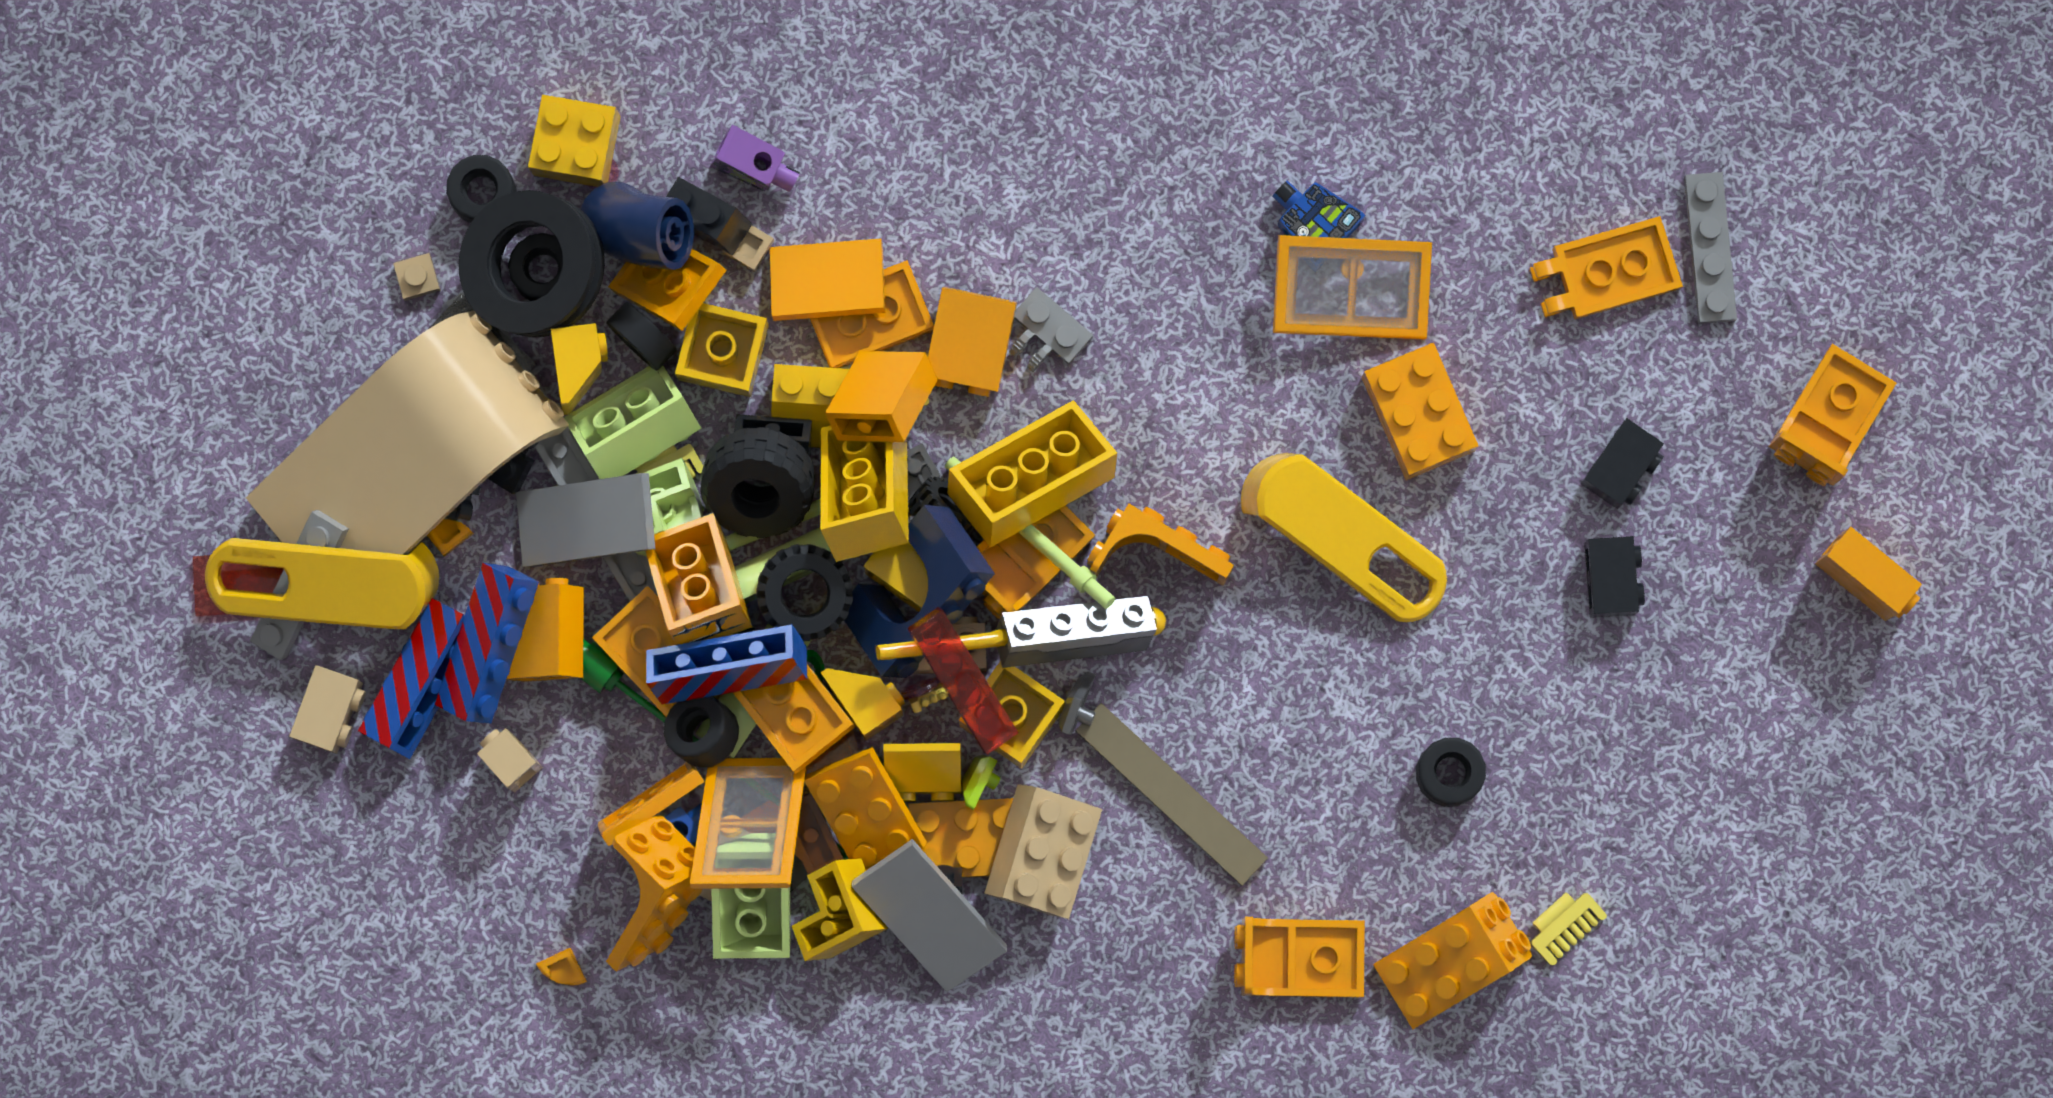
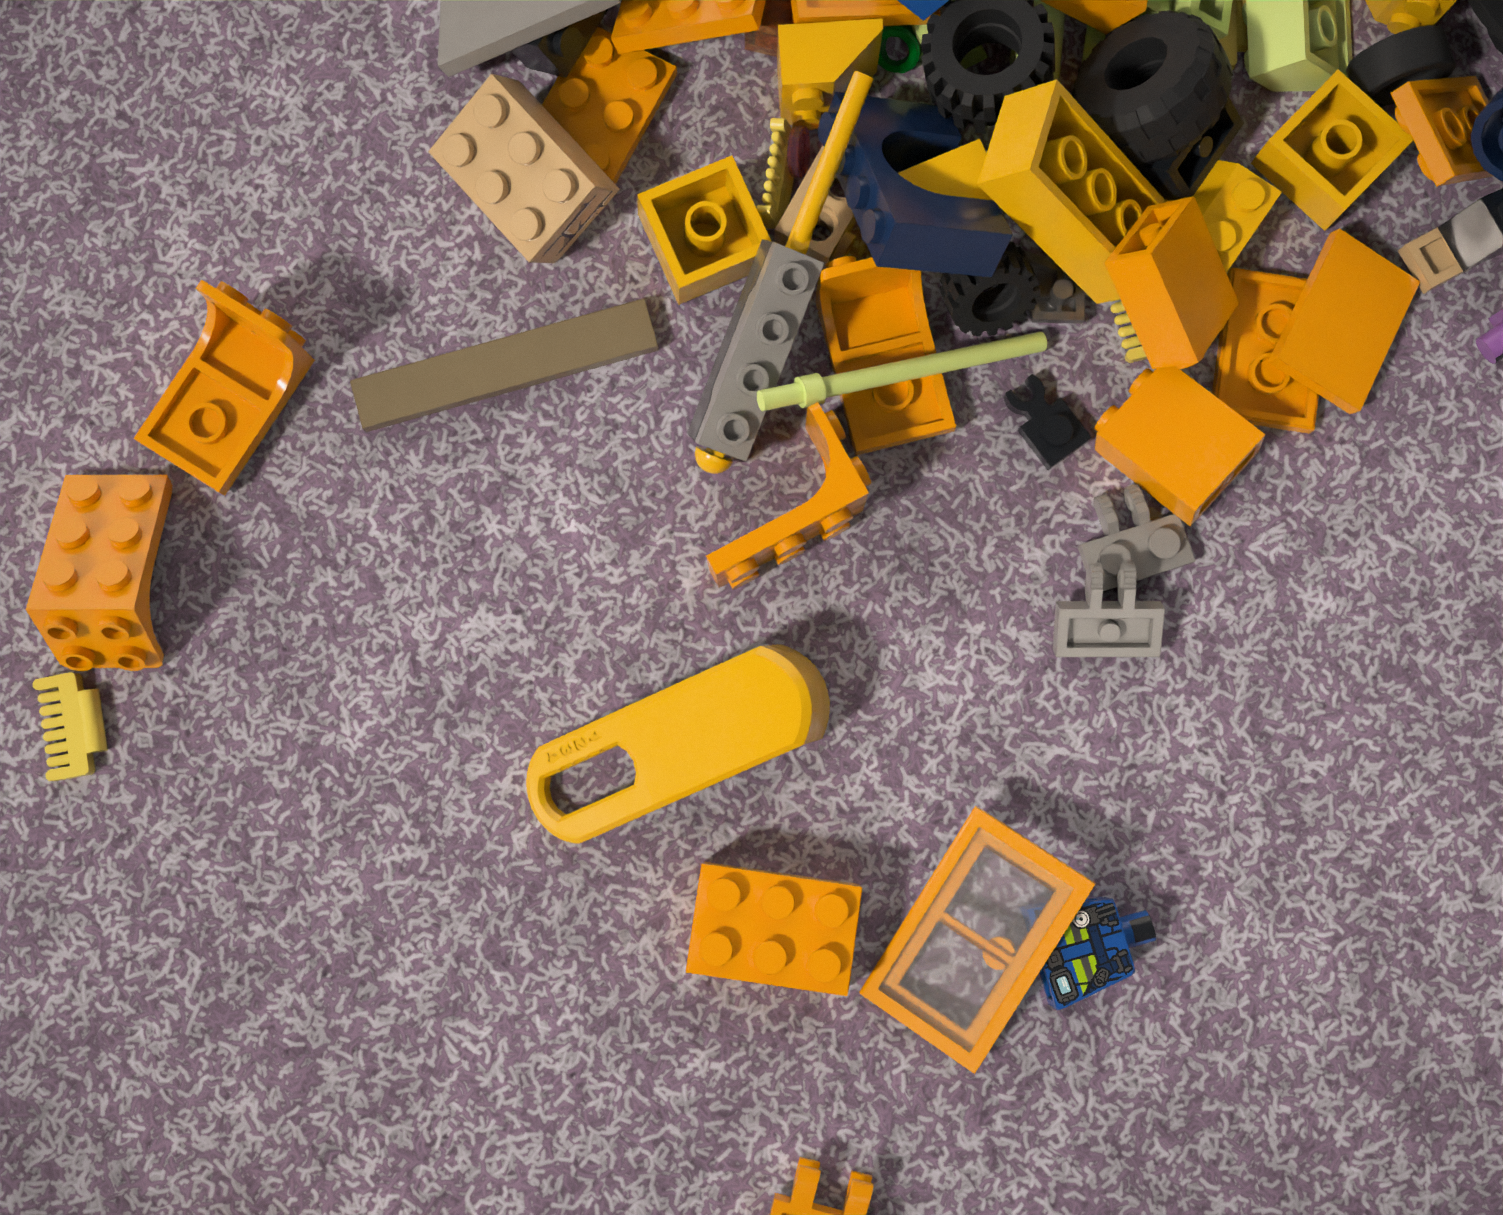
camera: 125 degrees right, 0 degrees up
(924, 769) = (704, 96): yellow slope -> none
(962, 680) = (773, 160): clear red plate -> none
(977, 777) = (659, 156): lime piece -> none
(1003, 420) = (1051, 429): none -> black plate
(1032, 473) = (974, 408): yellow brick -> none
(1073, 710) = (670, 308): flat silver piece -> none
(1111, 315) = (1108, 627): none -> light grey hinge
(1474, 772) = (291, 692): black tyre -> none
(1613, 576) = (430, 1040): black brick -> none
(1623, 464) = (558, 1141): black brick -> none

